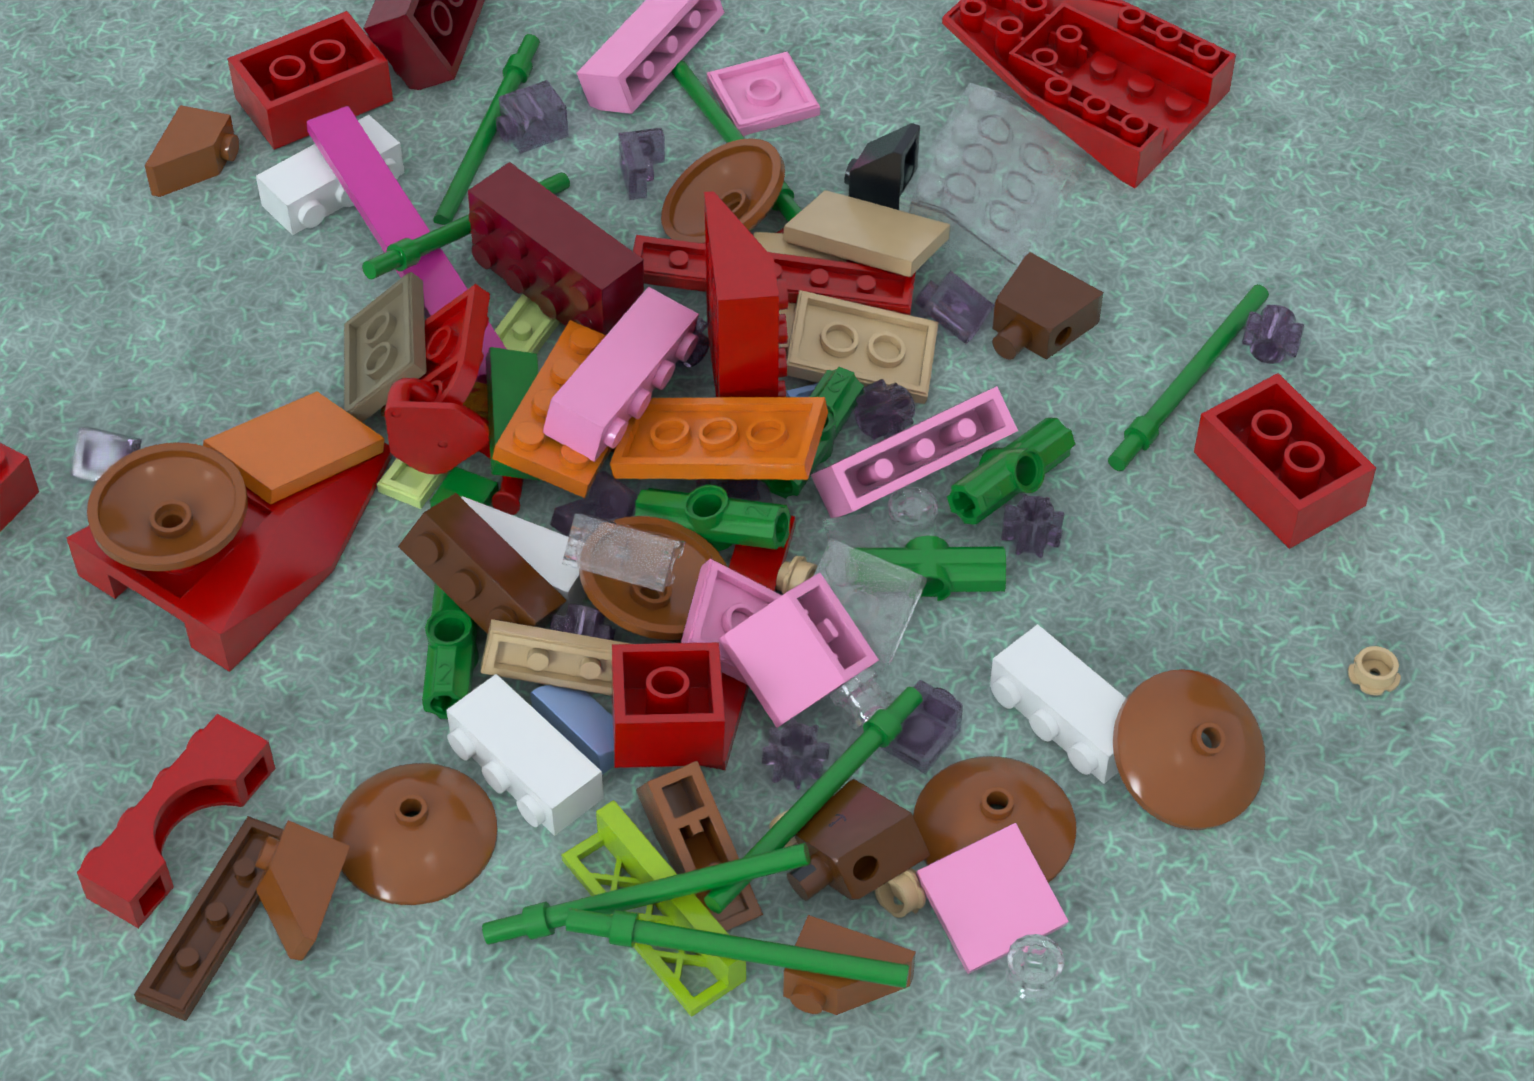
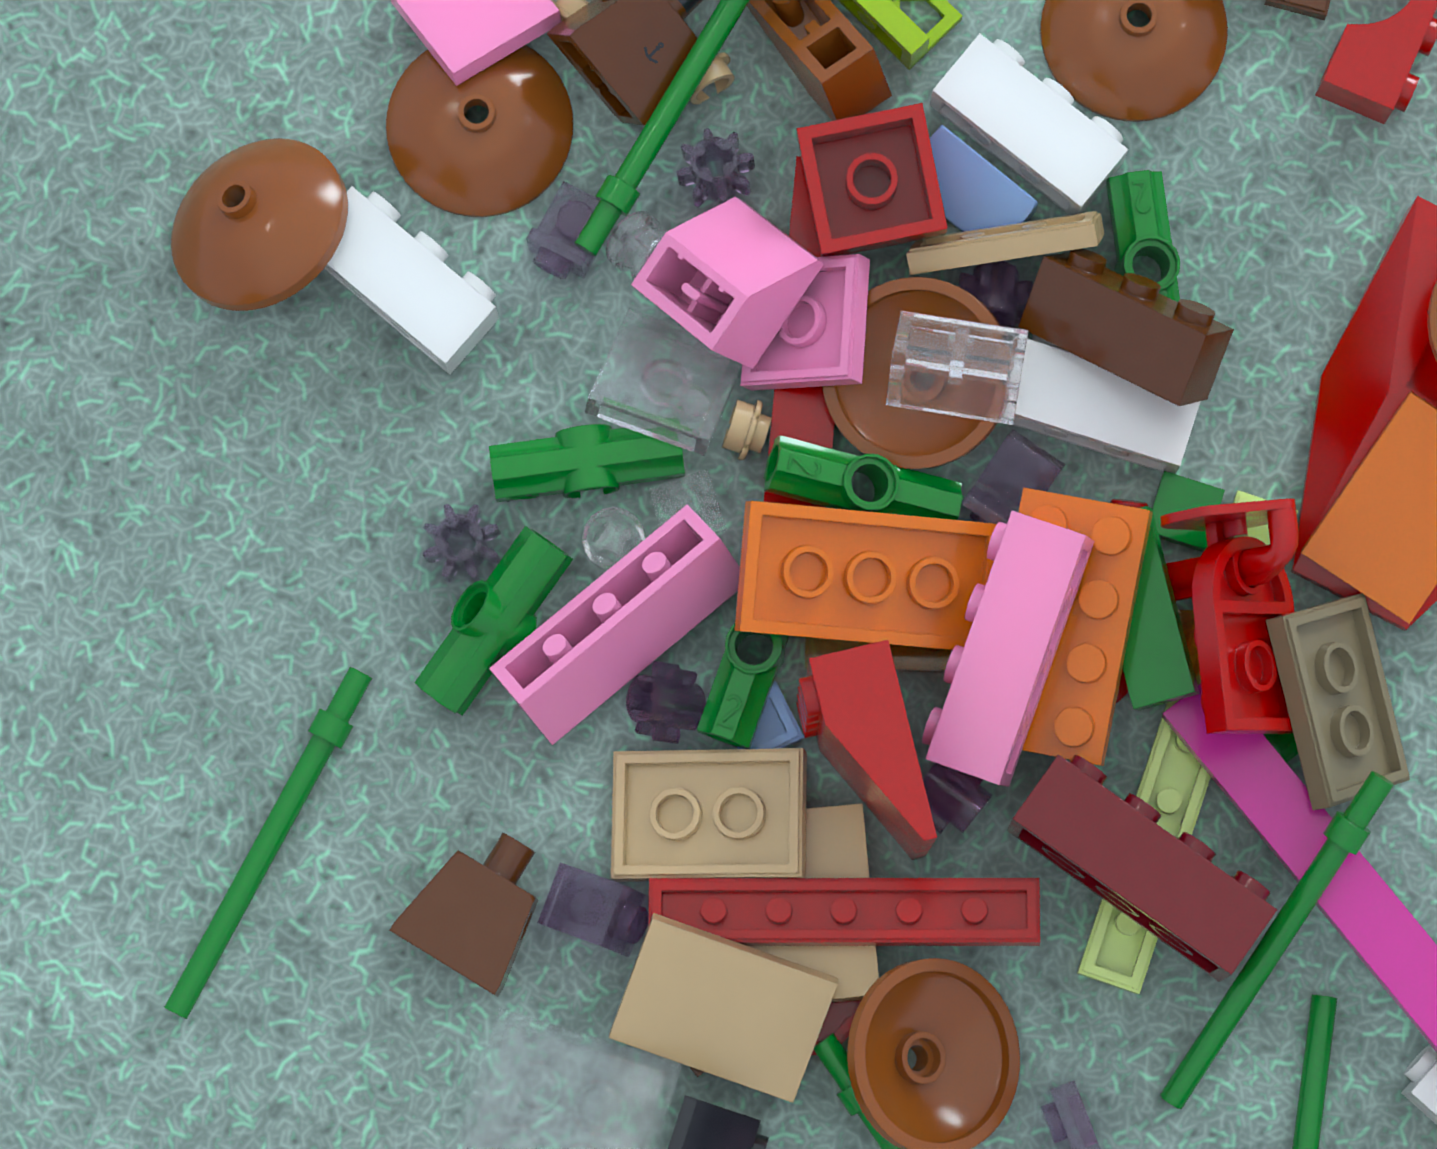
camera: 175 degrees right, 30 degrees up
(1273, 334) = (158, 909): clear purple gear -> none
(1284, 460) = (145, 676): red brick -> none
(1378, 660) = (39, 371): tan plate -> none

